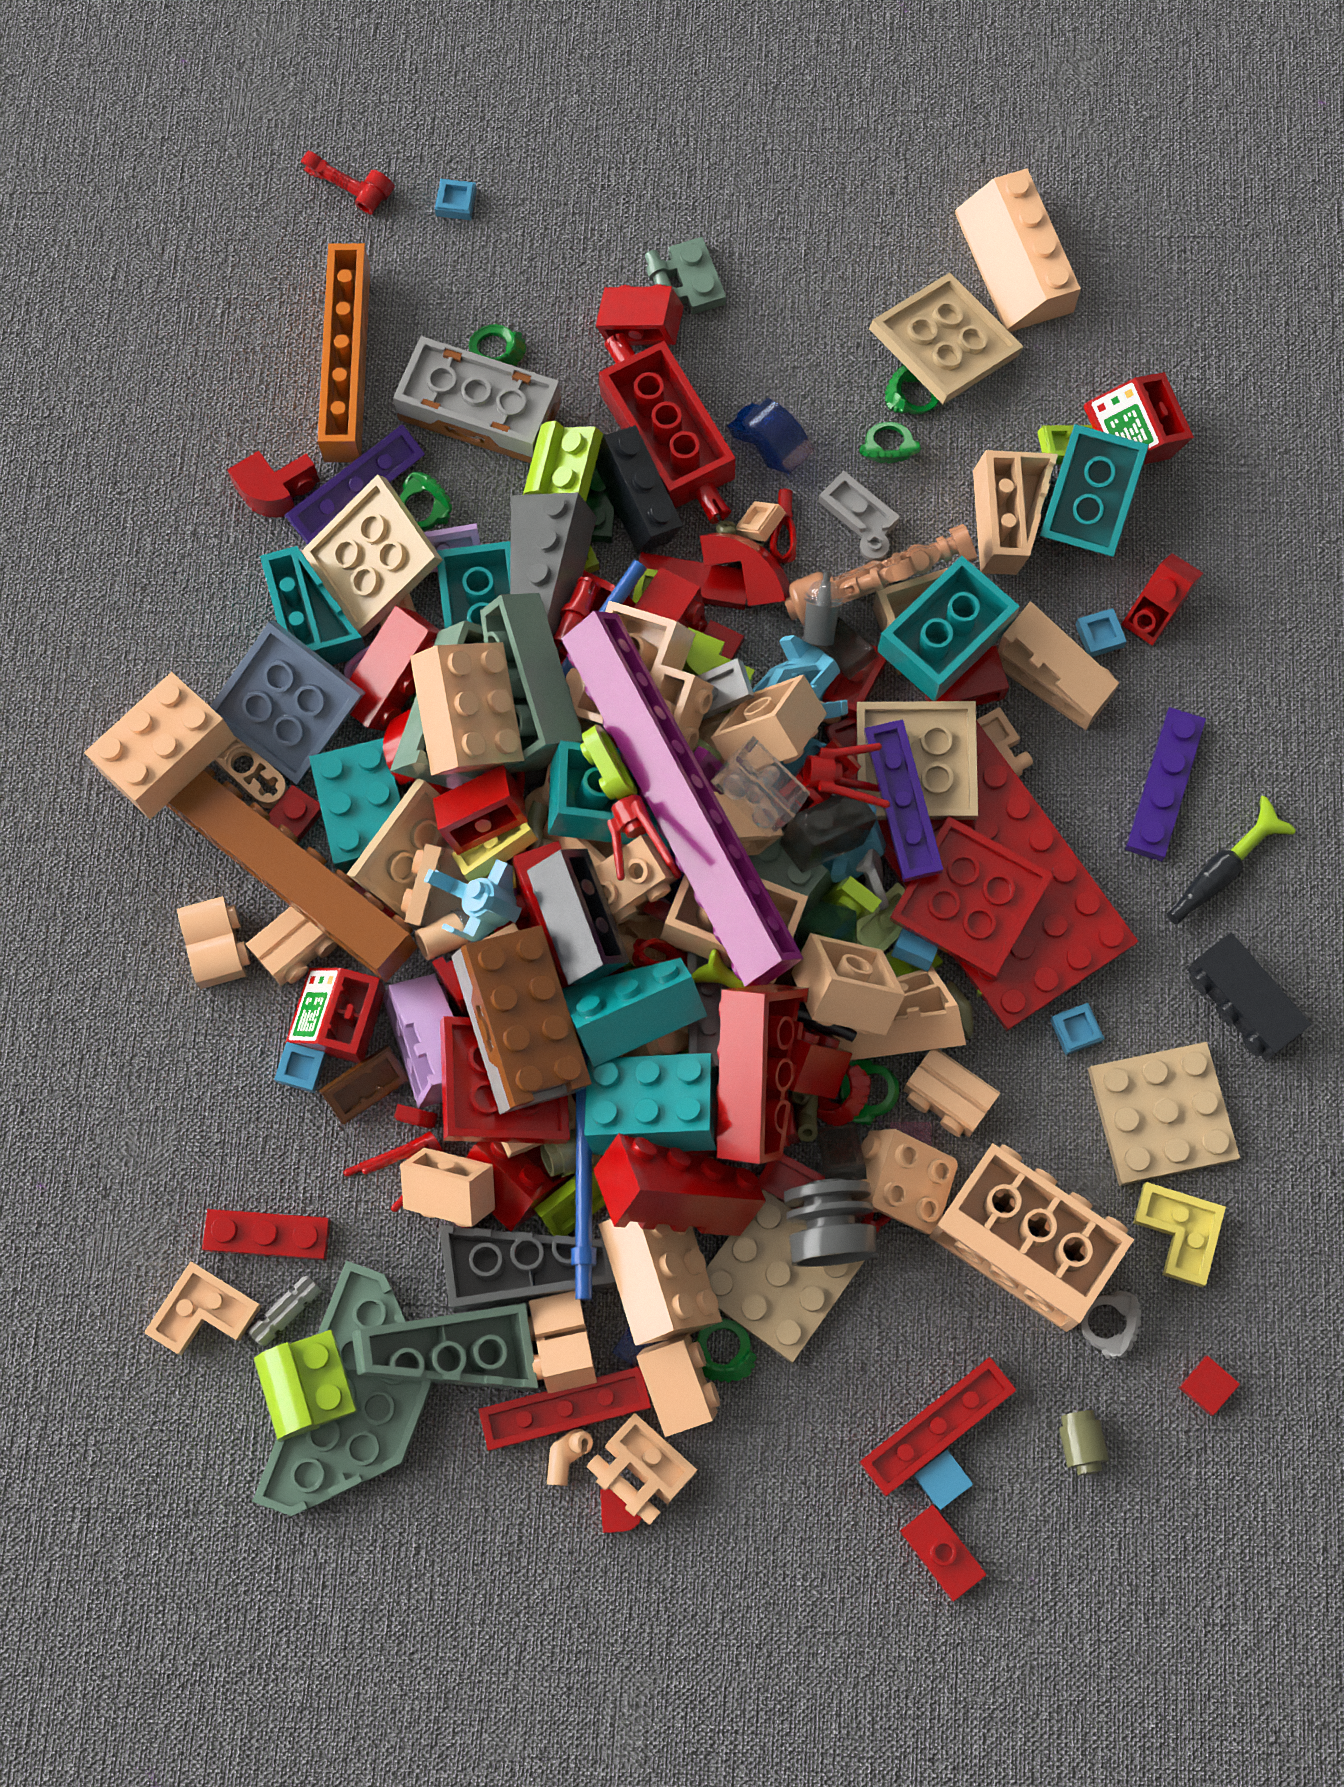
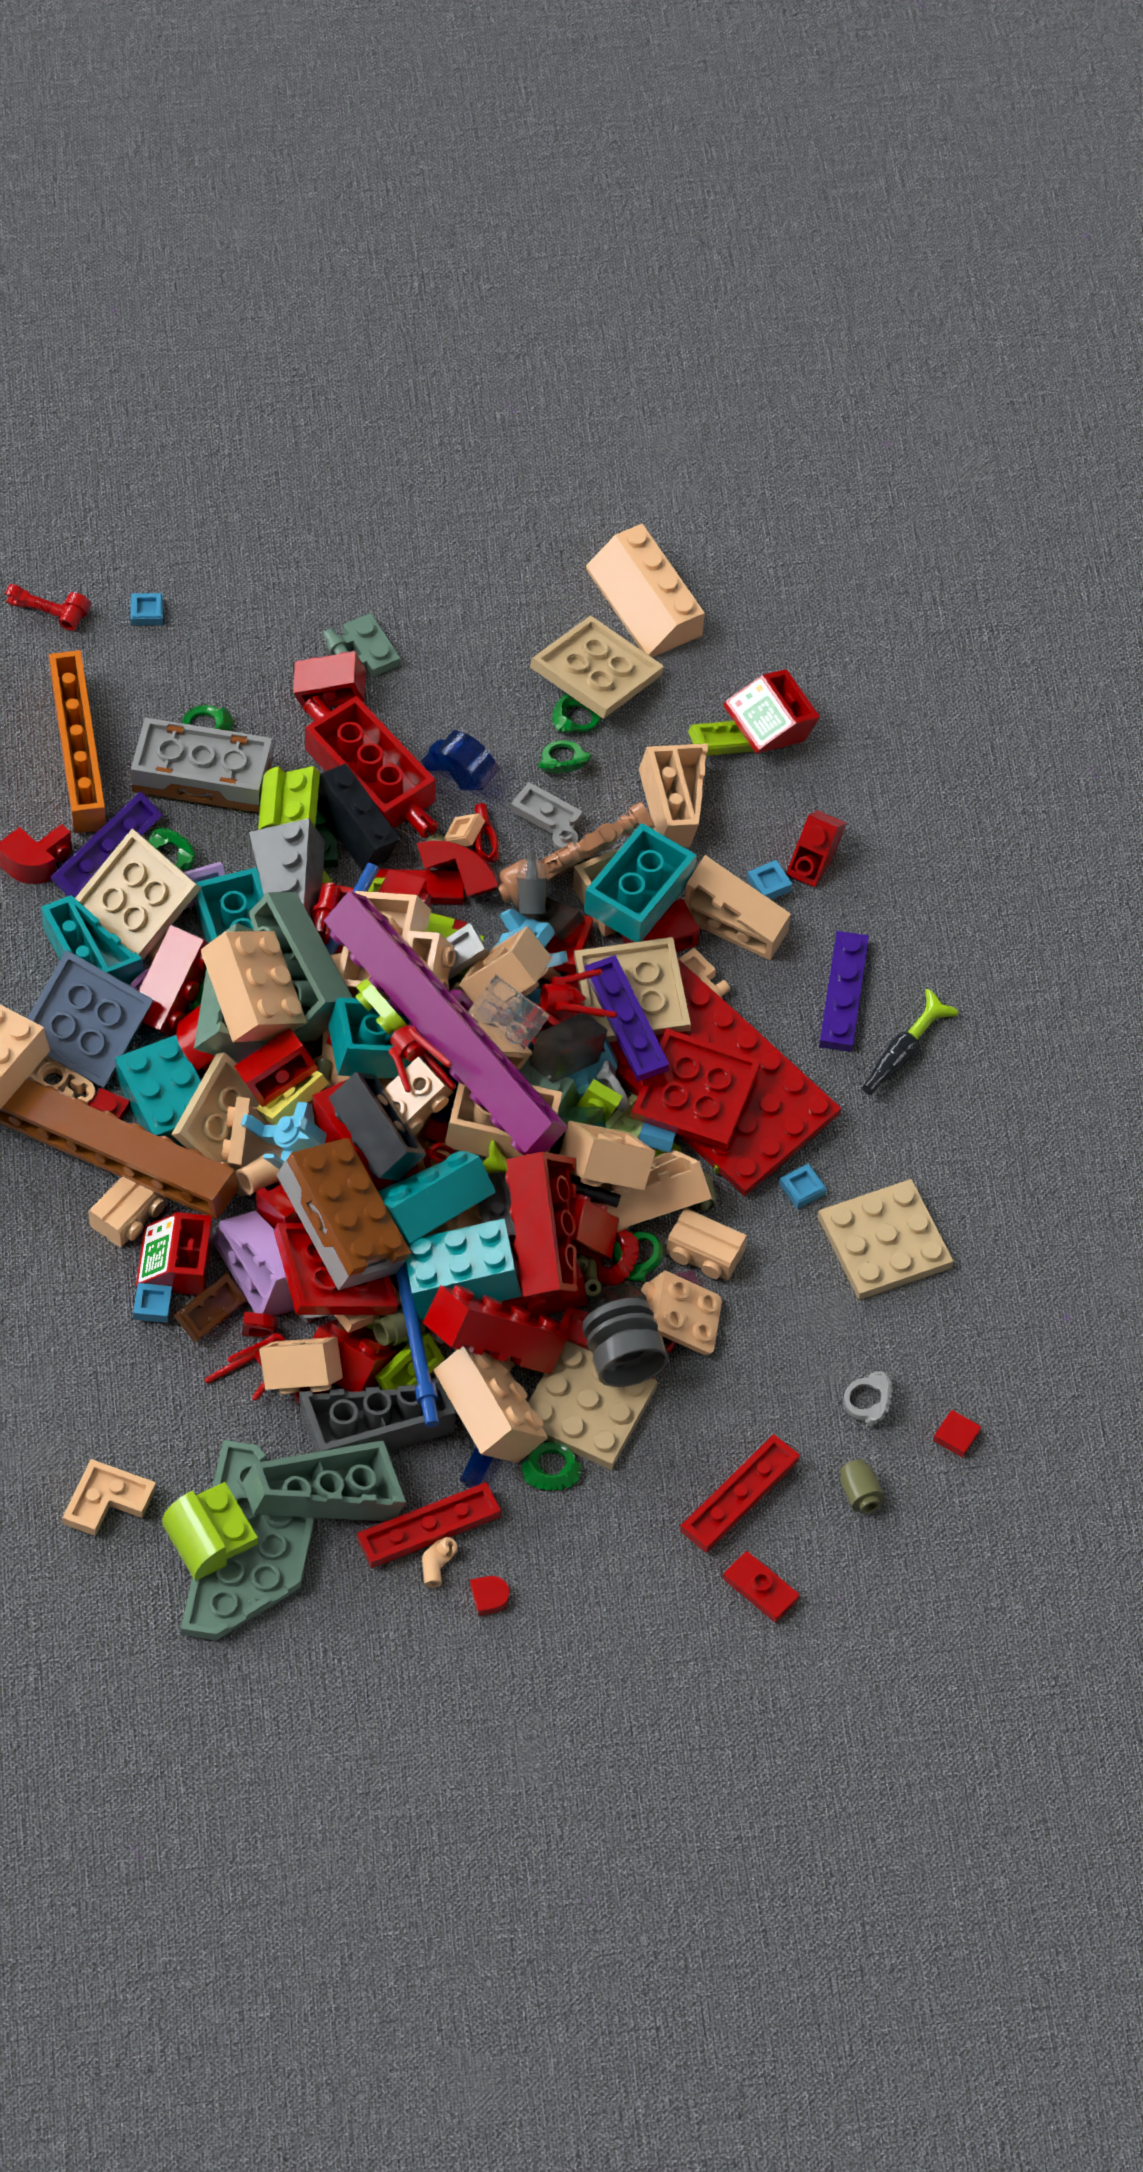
camera: 15 degrees left, 15 degrees down
(213, 942) = (57, 1217): light nougat brick -> none
(266, 1234) = (149, 1435): red plate -> none
(284, 1311) = (177, 1487): light grey axle -> none
(561, 1342) = (419, 1474): light nougat piece -> none
(650, 1460) = (505, 1549): light nougat plate -> none
(678, 1384) = (520, 1487): light nougat brick -> none
(942, 1479) = (751, 1533): dark azure tile -> none
(1015, 1259) = (790, 1337): light nougat brick -> none
(1094, 490) = (743, 767): teal brick -> none
(1193, 1229) = (919, 1313): light yellow plate -> none
(1247, 997) = (939, 1140): black brick -> none

